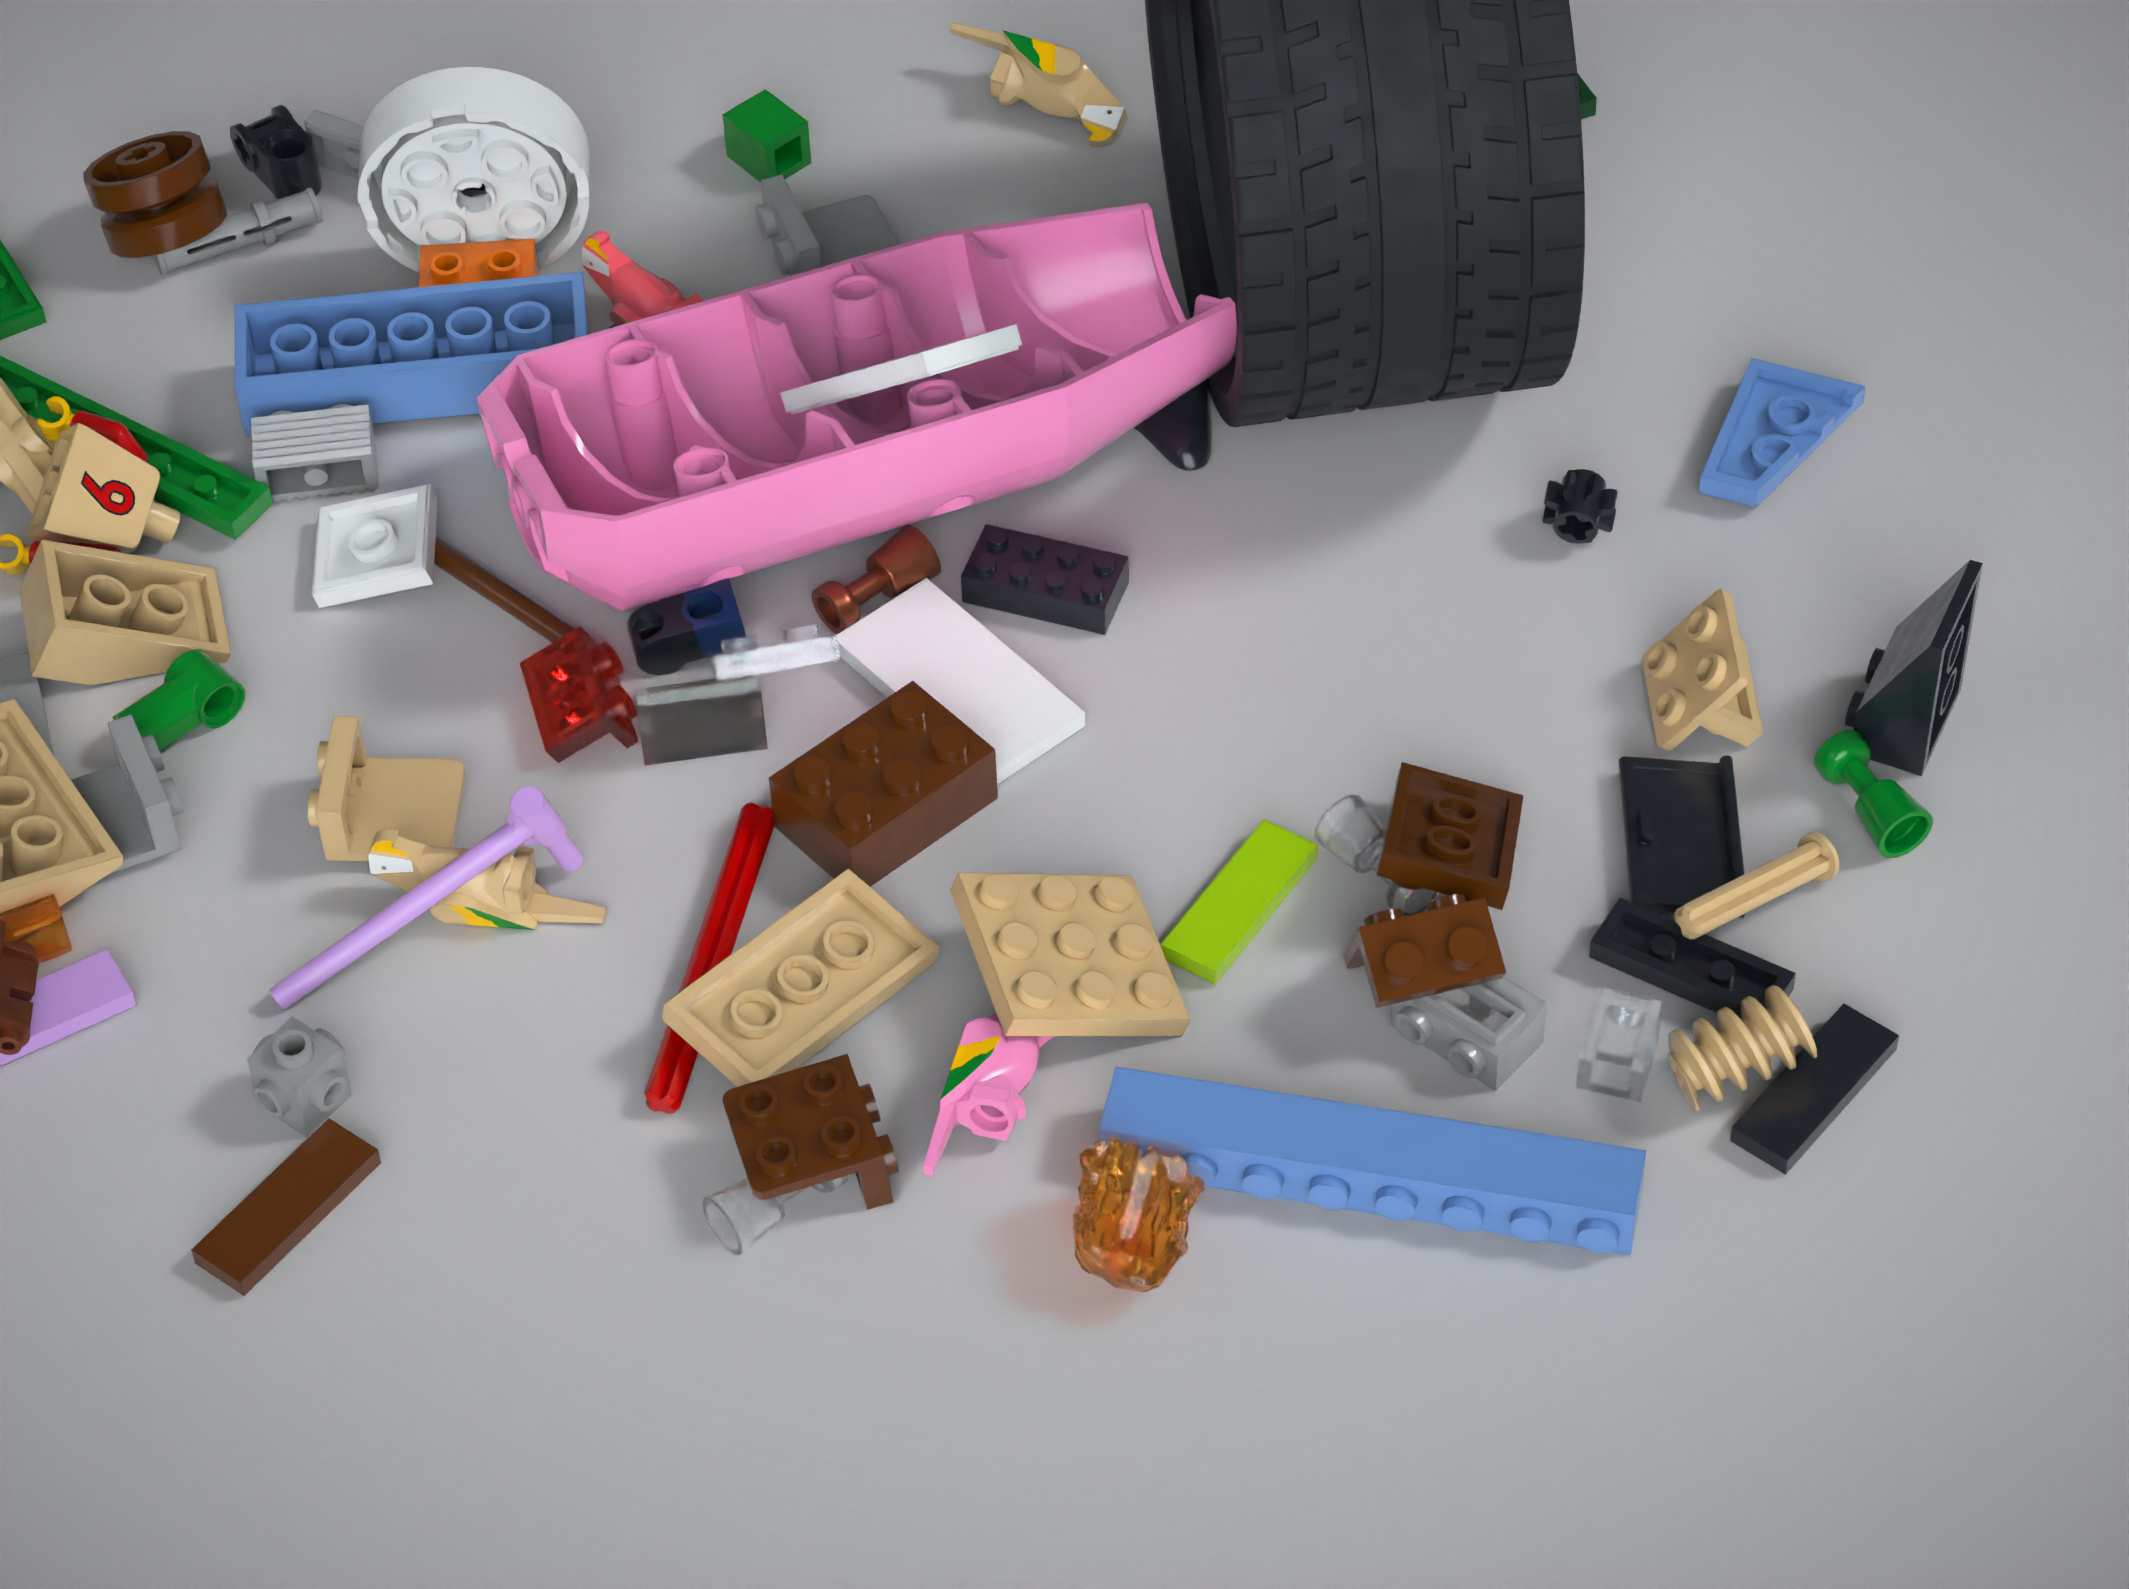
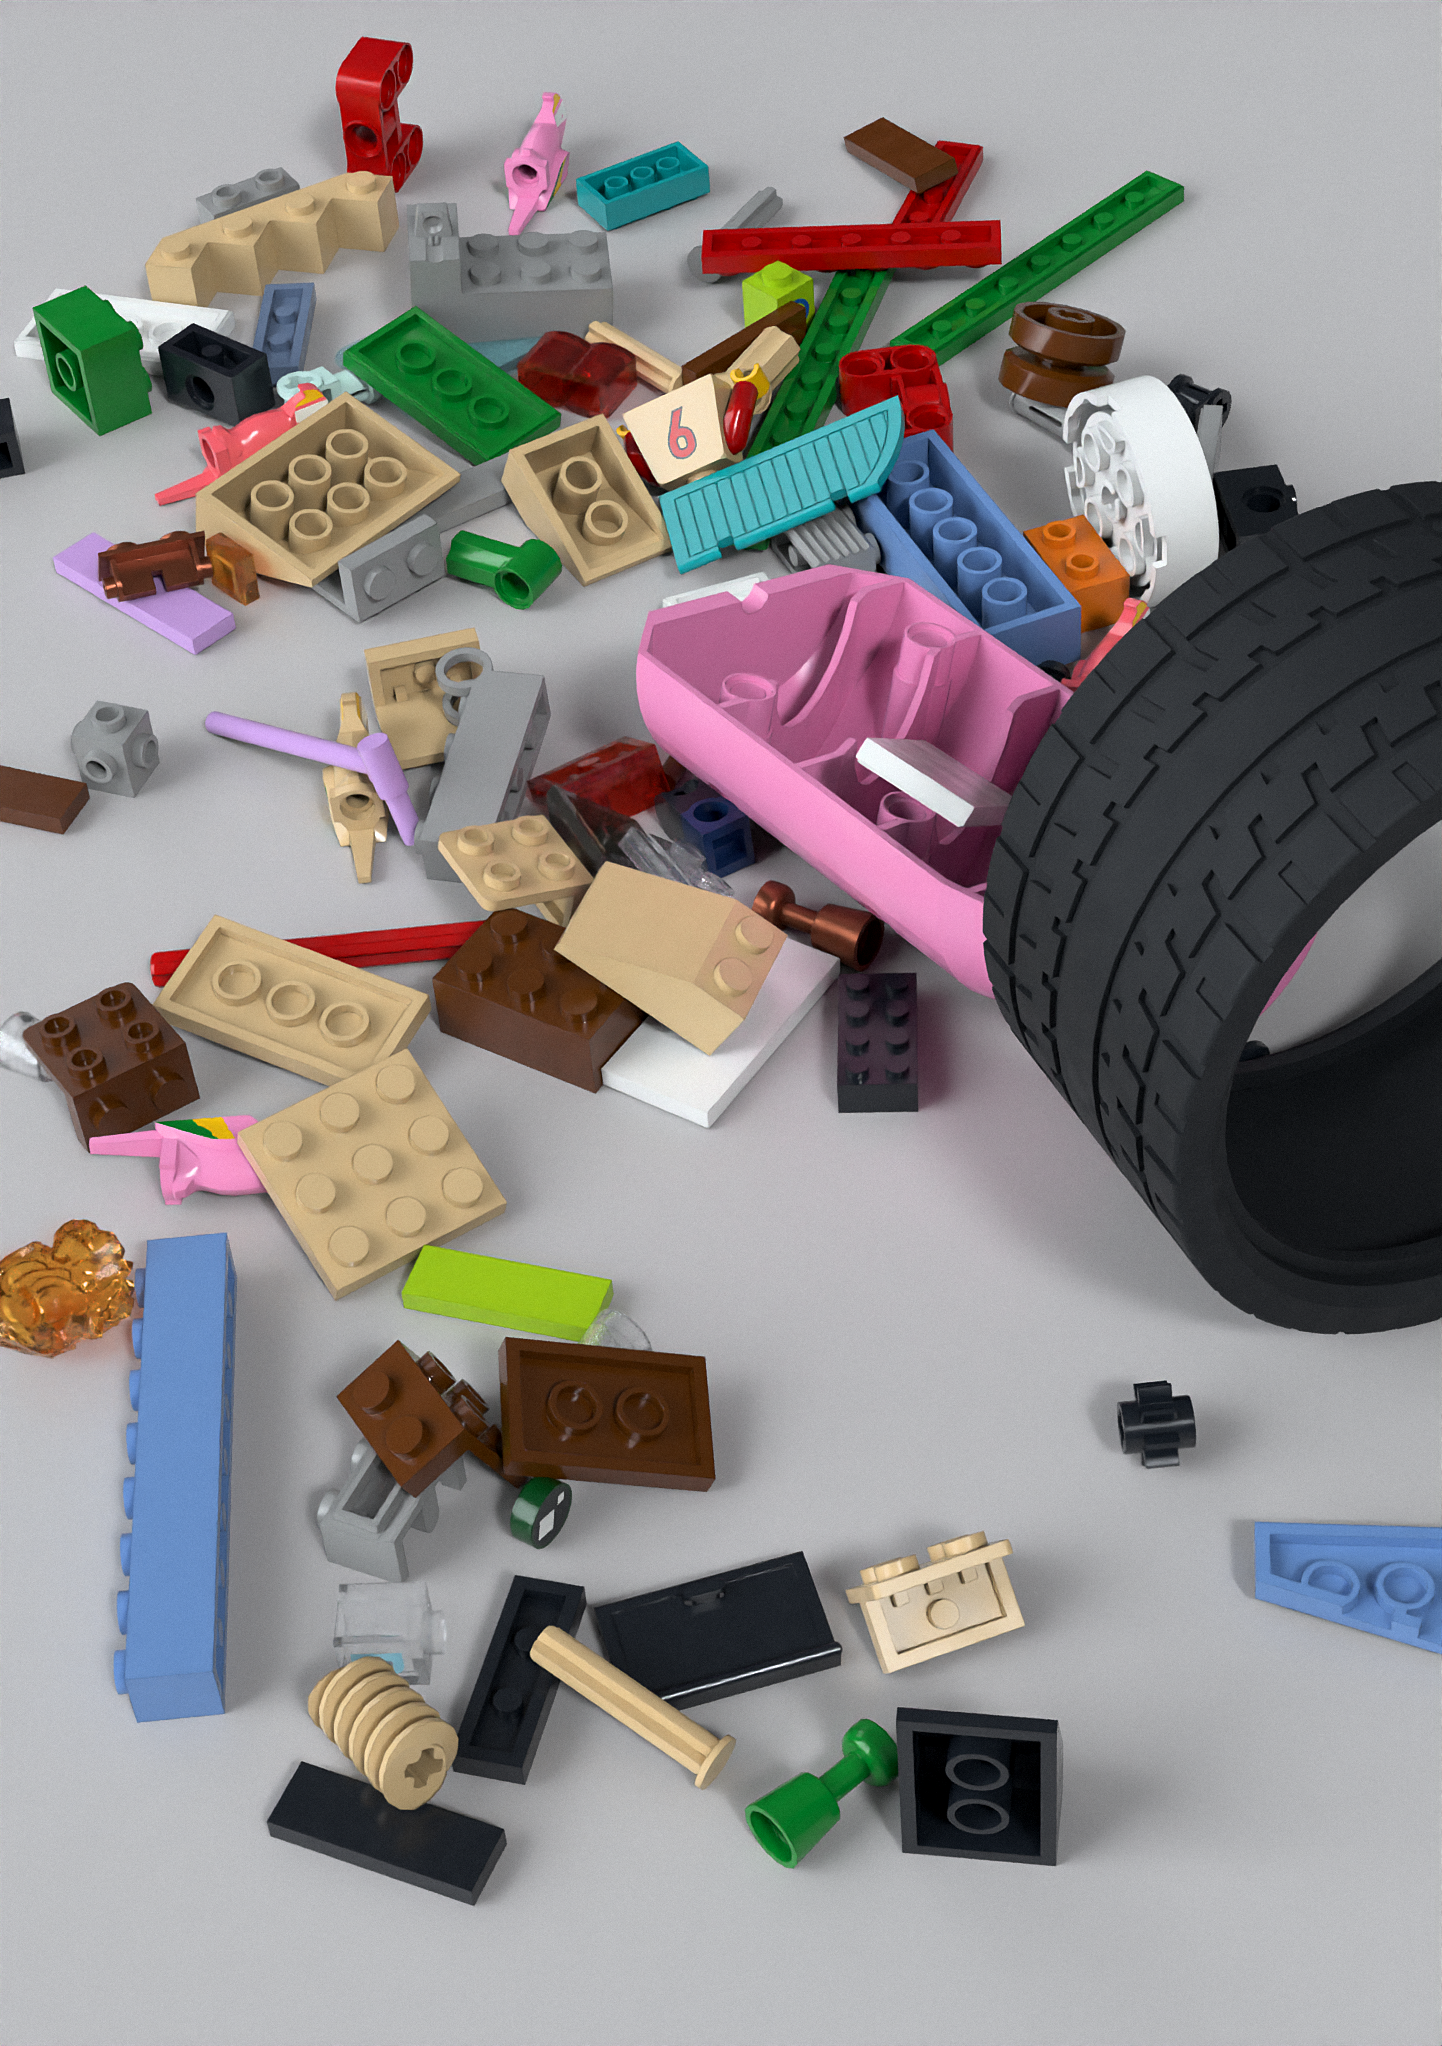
camera: 75 degrees right, 5 degrees down
(130, 328) = (903, 371): none -> red beam
(238, 442) = (784, 485): none -> piece
(502, 748) = (489, 755): none -> light grey hinge
(720, 753) = (518, 866): none -> tan bracket
(929, 649) = (673, 951): none -> tan slope
(1523, 916) = (540, 1511): none -> tile

